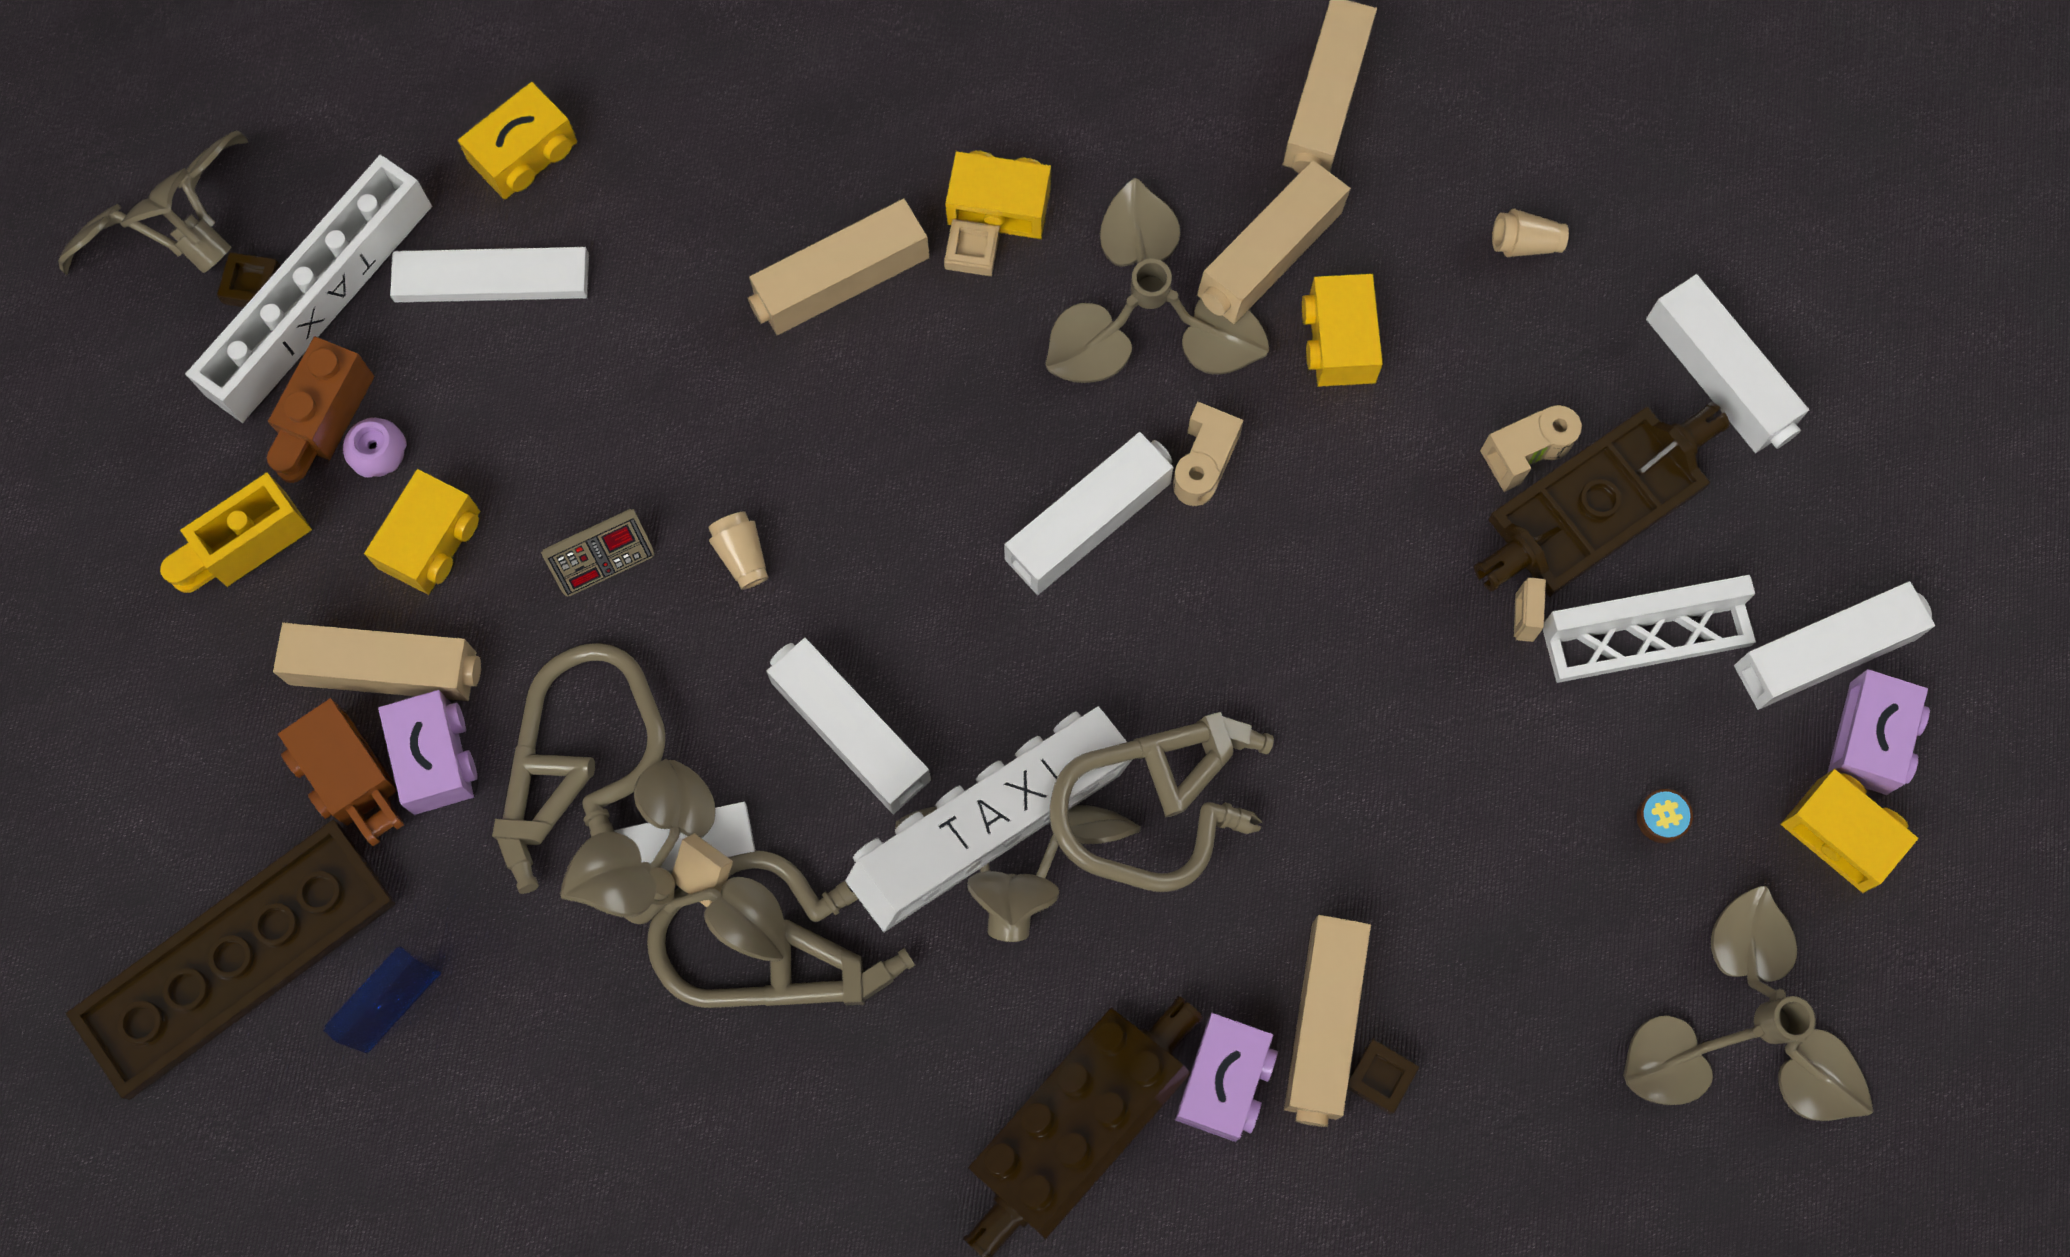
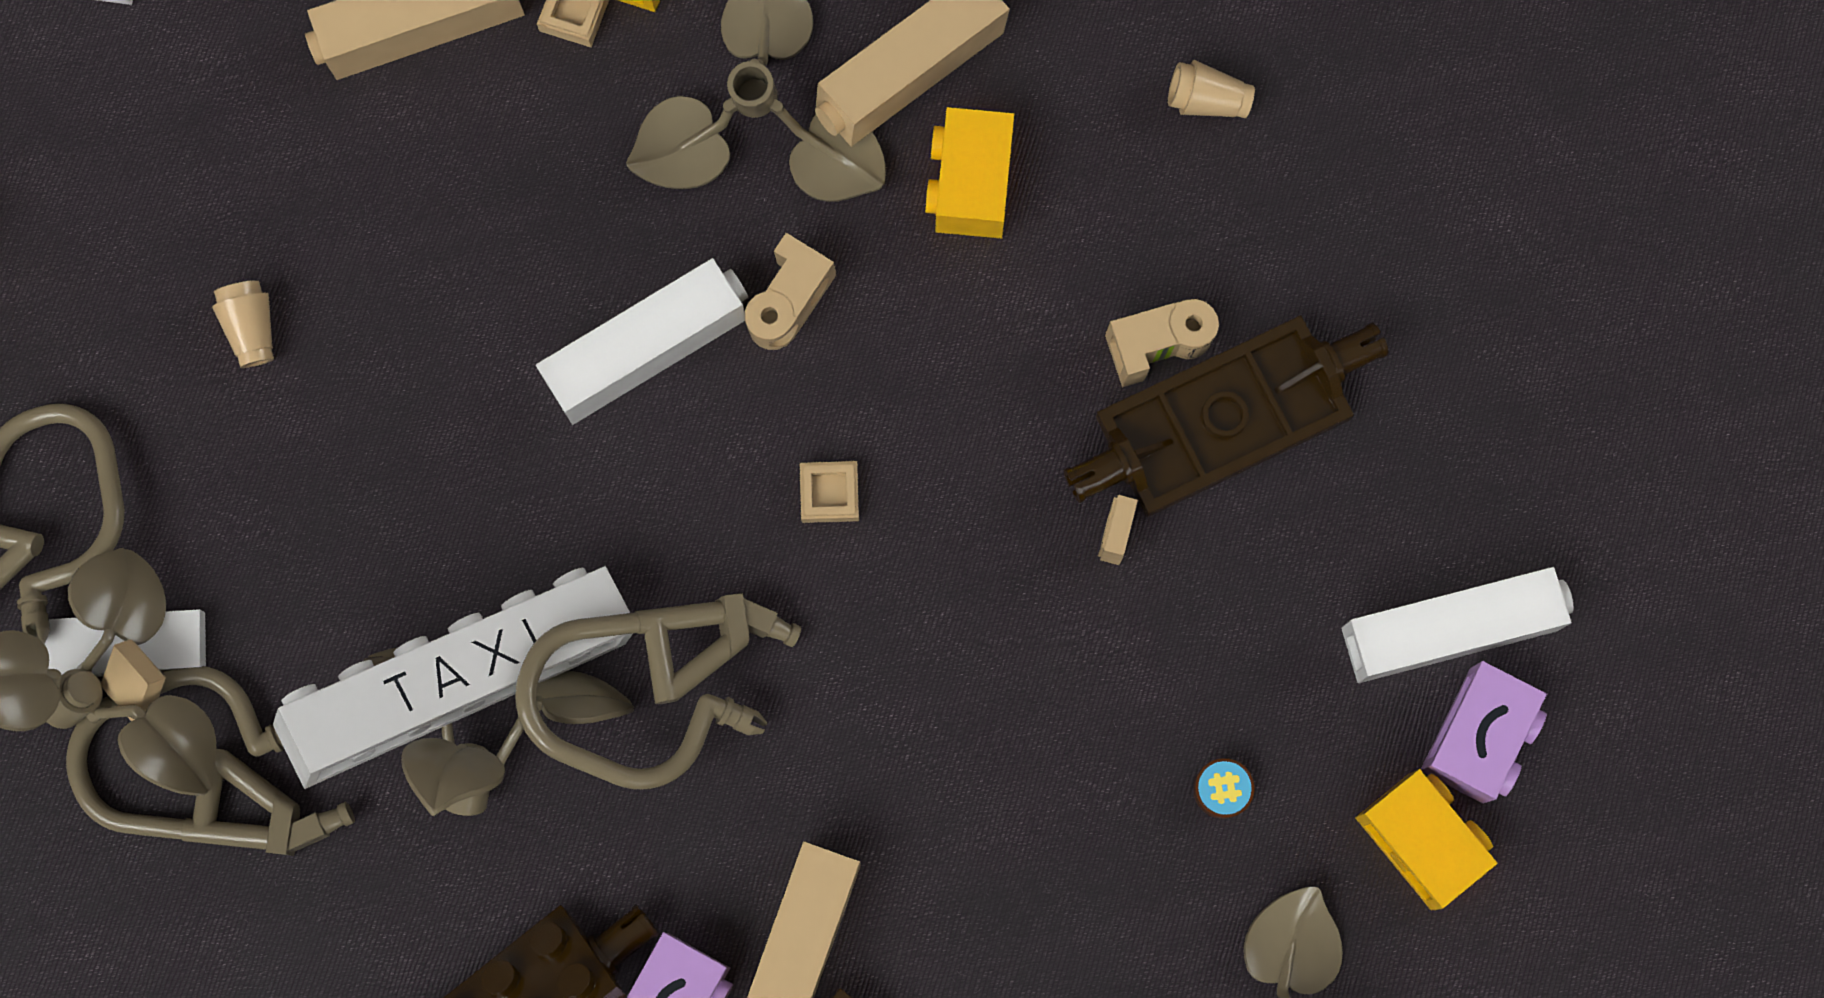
camera: 10 degrees right, 5 degrees up
(598, 553) = (89, 302): slope -> none
(848, 724) = (327, 541): white brick -> none
(1273, 617) = (829, 491): none -> tan tile
(1647, 610) = (1252, 551): white fence -> none
(1728, 365) = (1404, 280): white brick -> none

